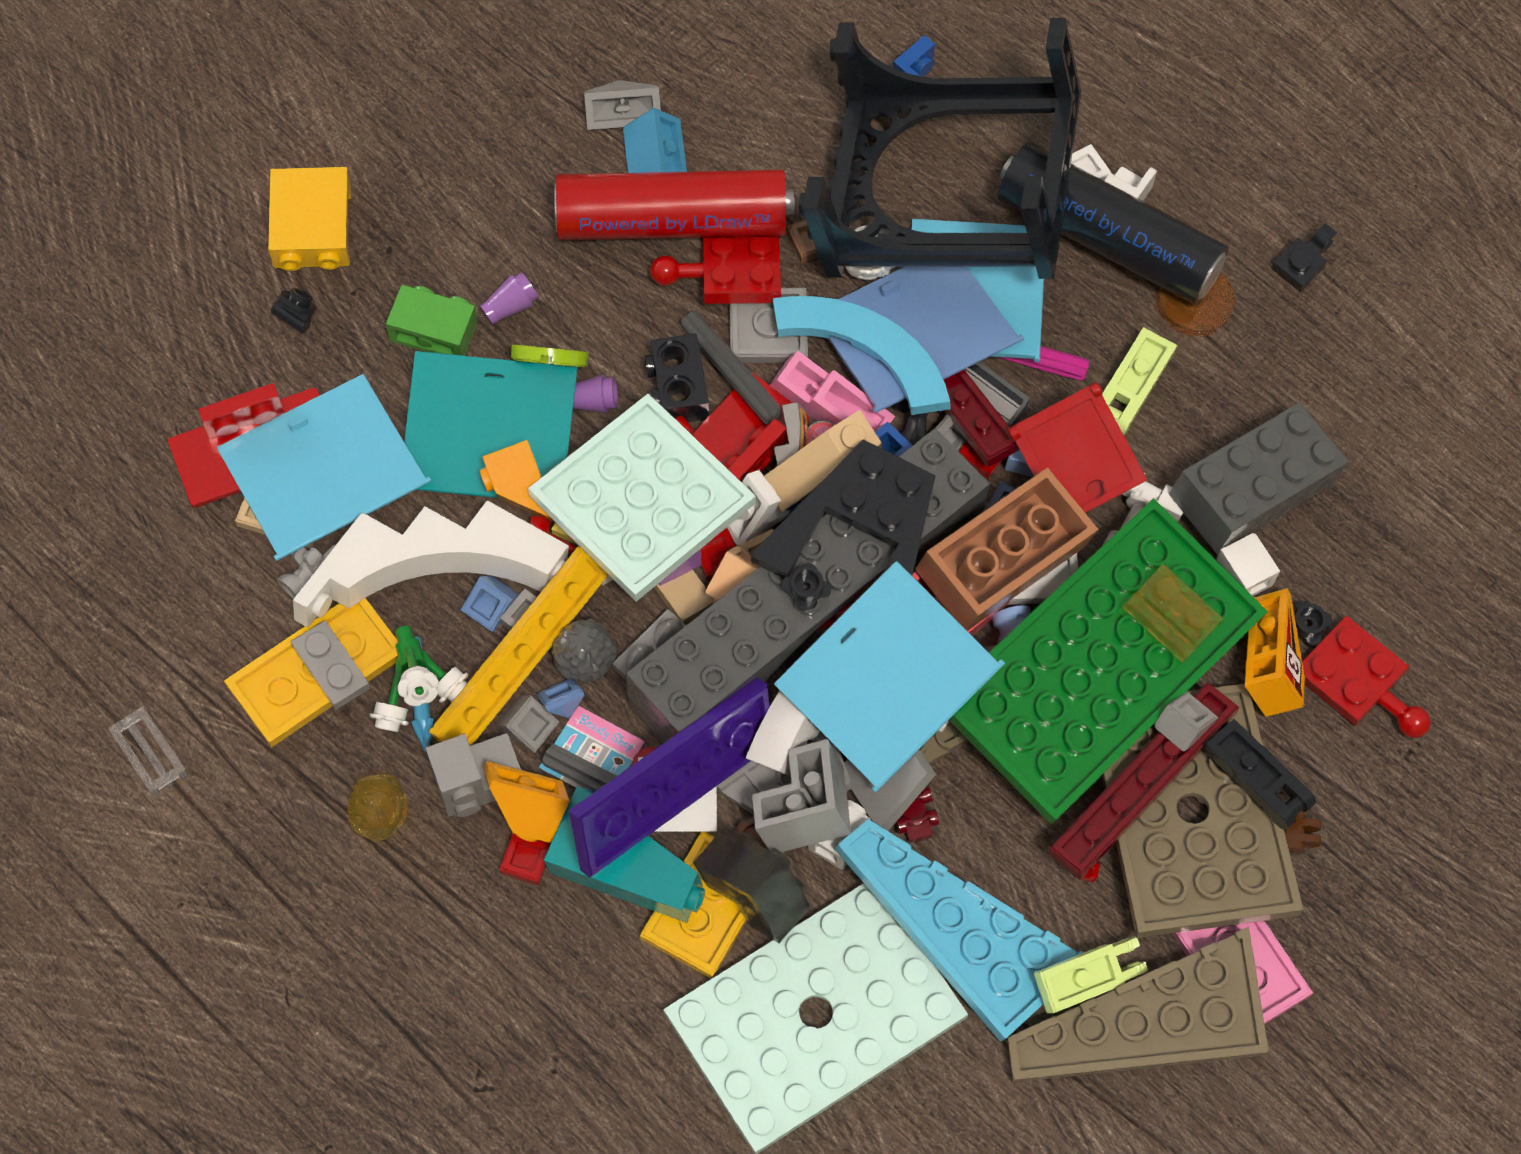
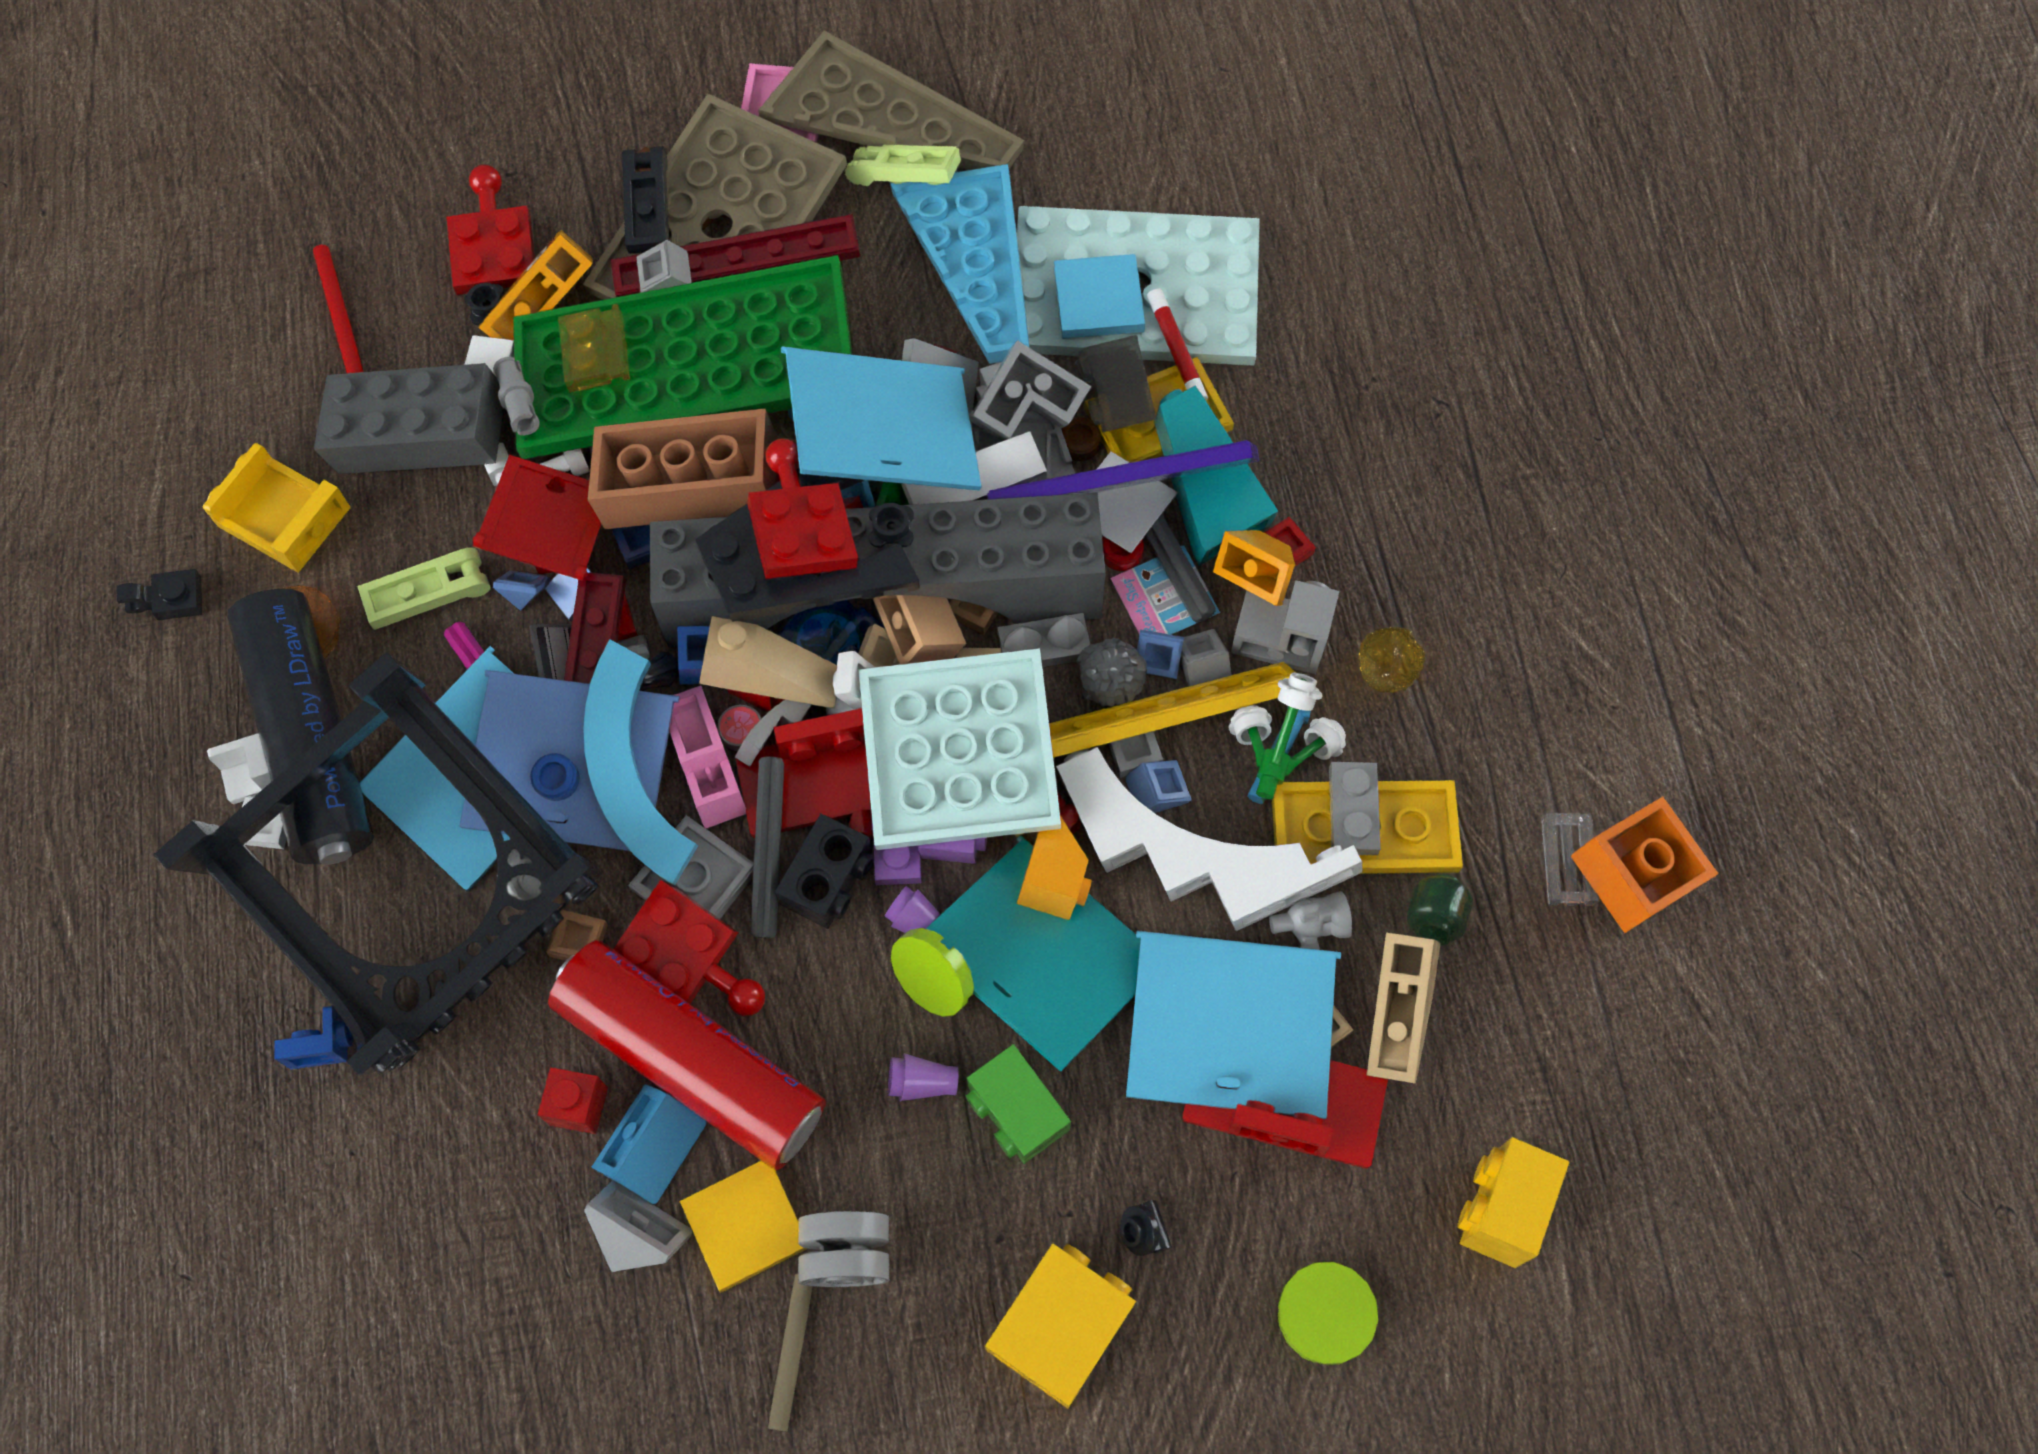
camera: 140 degrees left, 0 degrees up
(54, 463) = (1512, 1203): none -> yellow brick
(85, 761) = (1643, 864): none -> orange brick
(142, 338) = (1327, 1313): none -> lime tile
(208, 554) = (1403, 1006): none -> tan slope
(222, 640) = (1440, 908): none -> clear green head
(471, 106) = (790, 1357): none -> dark tan bar
(477, 163) = (843, 1249): none -> light grey wheel
(555, 146) = (743, 1225): none -> yellow tile
(721, 139) = (573, 1100): none -> red brick
(731, 960) = (1175, 341): none -> red bar
(828, 959) = (1099, 296): none -> medium azure tile
(865, 527) = (799, 526): none -> red plate
(911, 306) = (554, 777): none -> blue tile
(1189, 531) = (516, 396): none -> light grey pin
(1294, 364) = (275, 508): none -> yellow panel
(1410, 538) = (337, 309): none -> red bar

